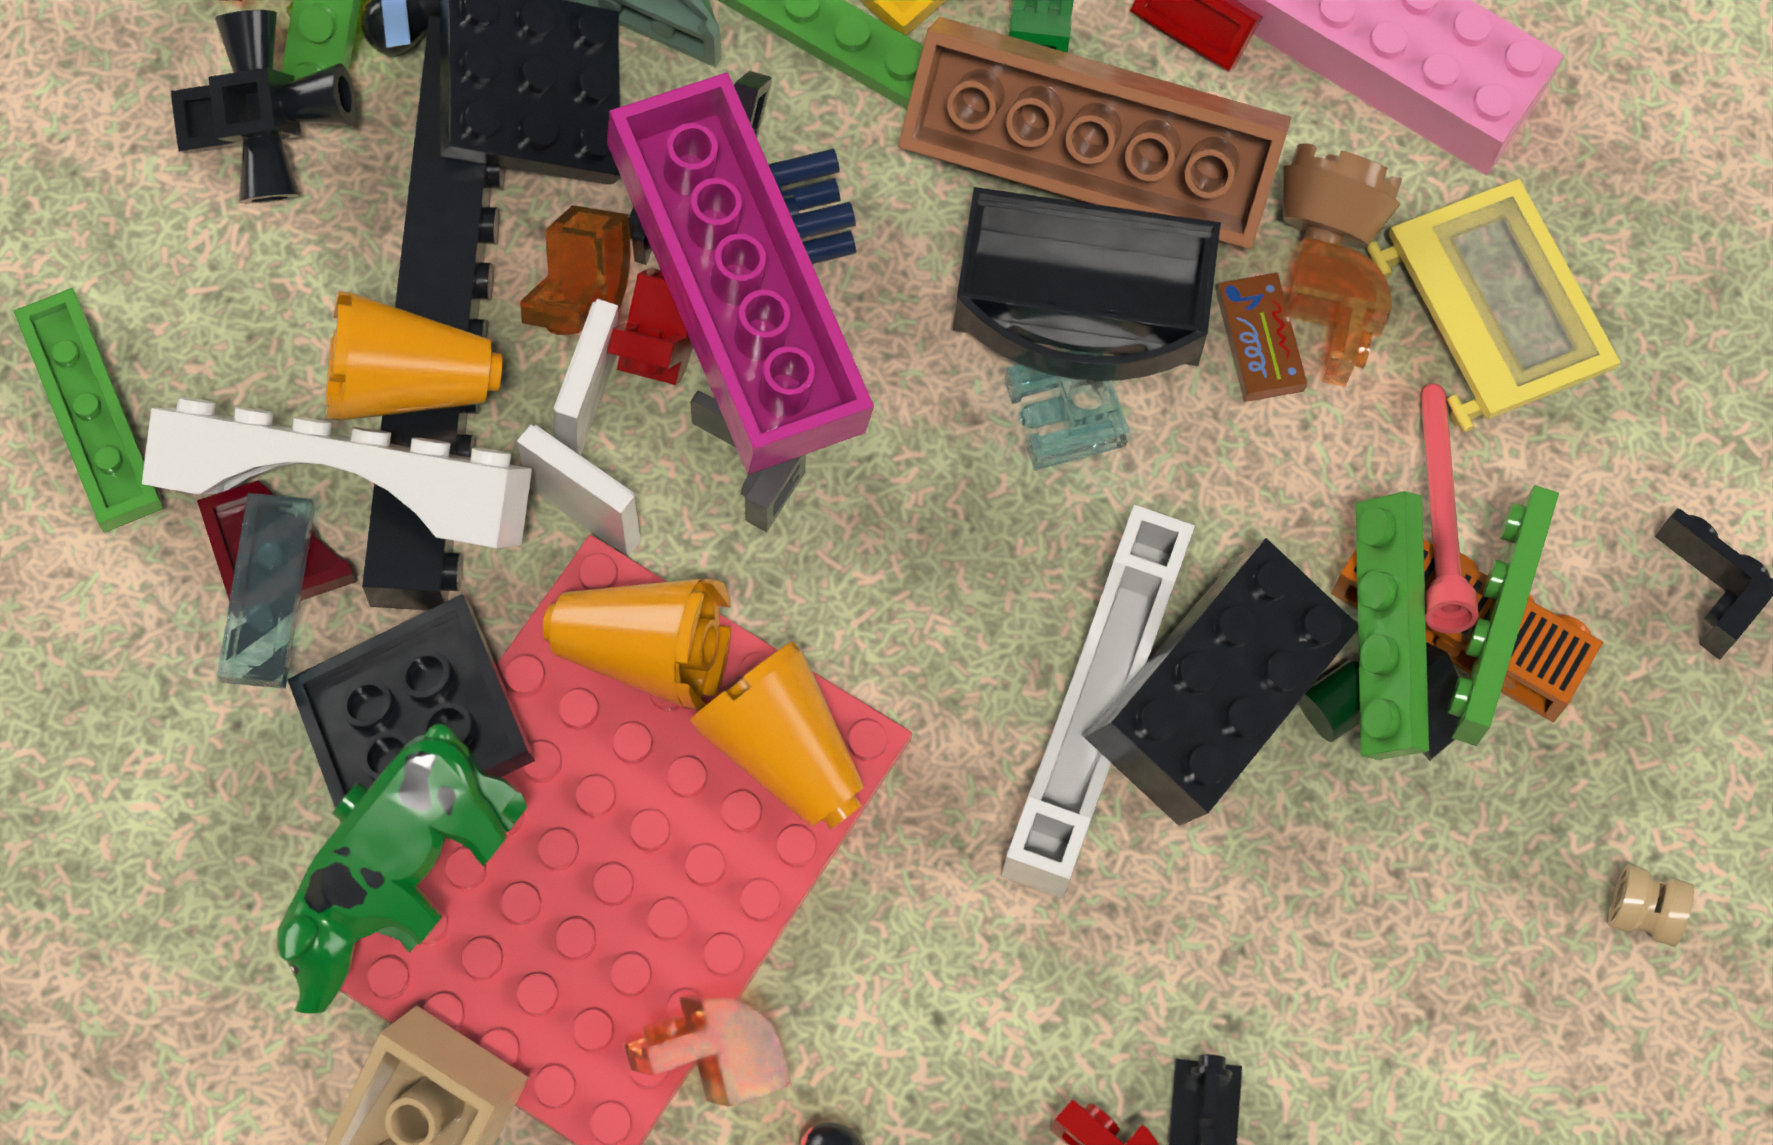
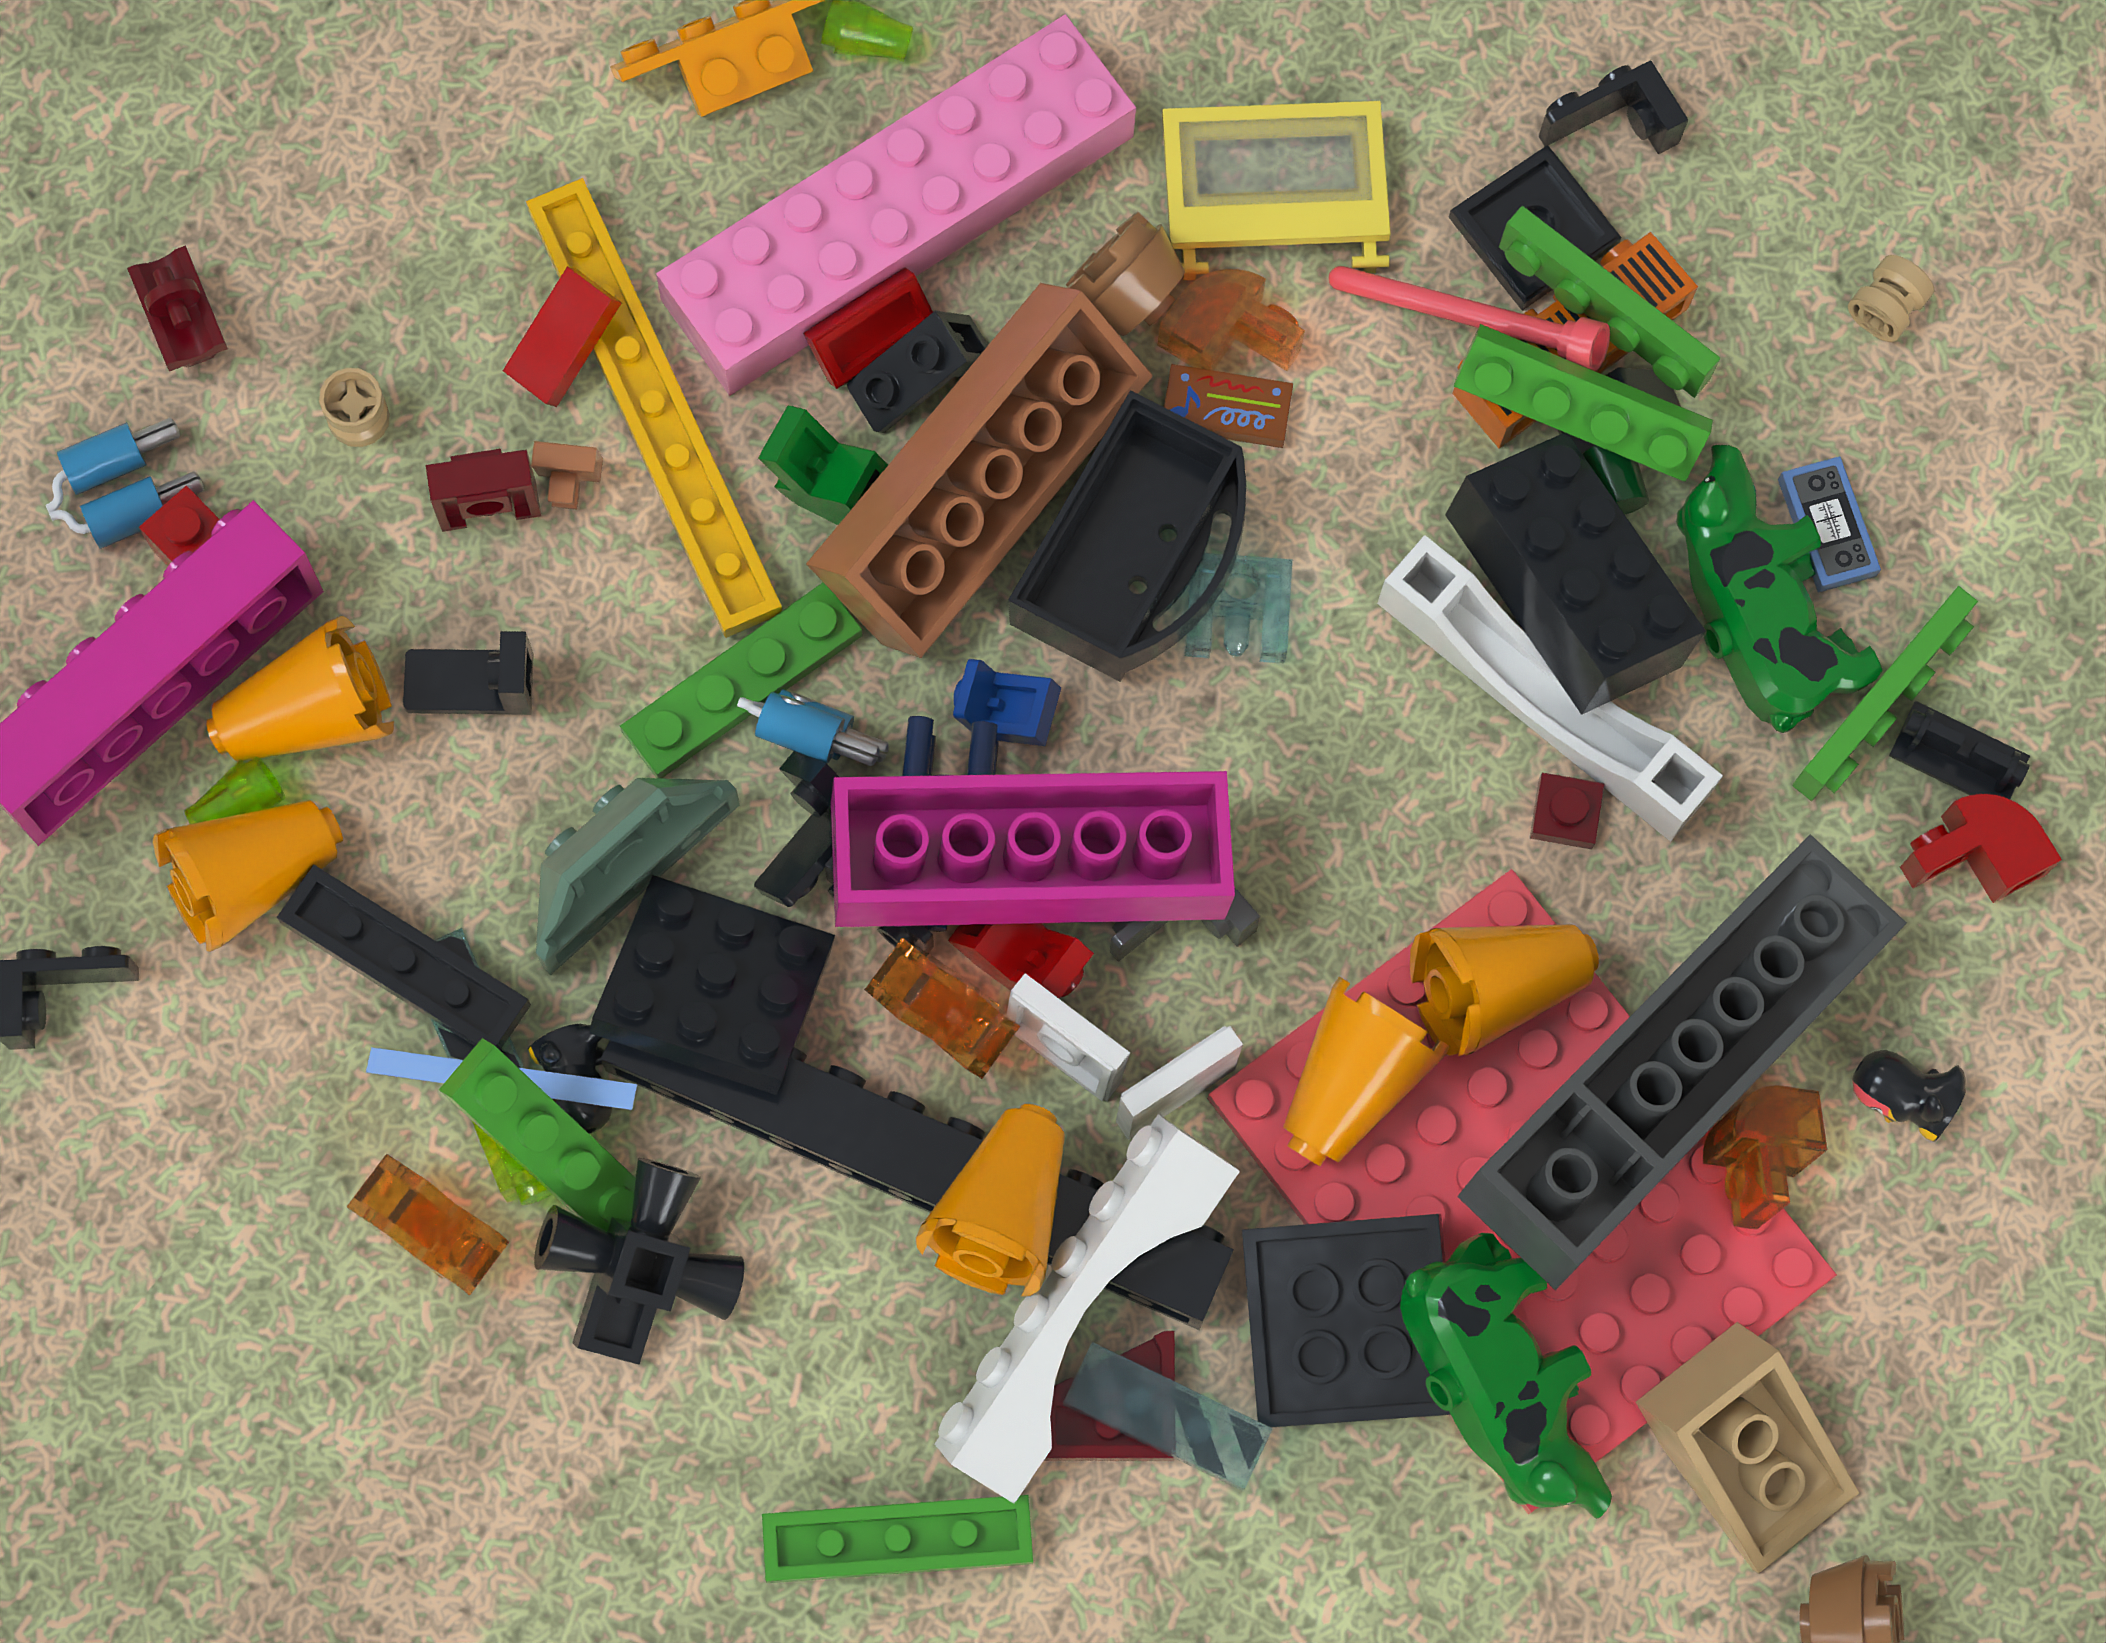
camera: 70 degrees left, 5 degrees up
(753, 919) = (1680, 1062): none -> dark grey slope
(796, 83) = (812, 729): none -> dark azure piece
(888, 235) = (1016, 703): none -> blue bracket
(992, 768) = (1567, 811): none -> dark red plate
(1178, 58) = (916, 367): none -> black bracket
(1259, 1041) = (1871, 716): none -> bright green plate
(1280, 860) = (1756, 603): none -> green animal
(1390, 924) = (1828, 499): none -> tile
(1584, 553) = (1549, 193): none -> black tile

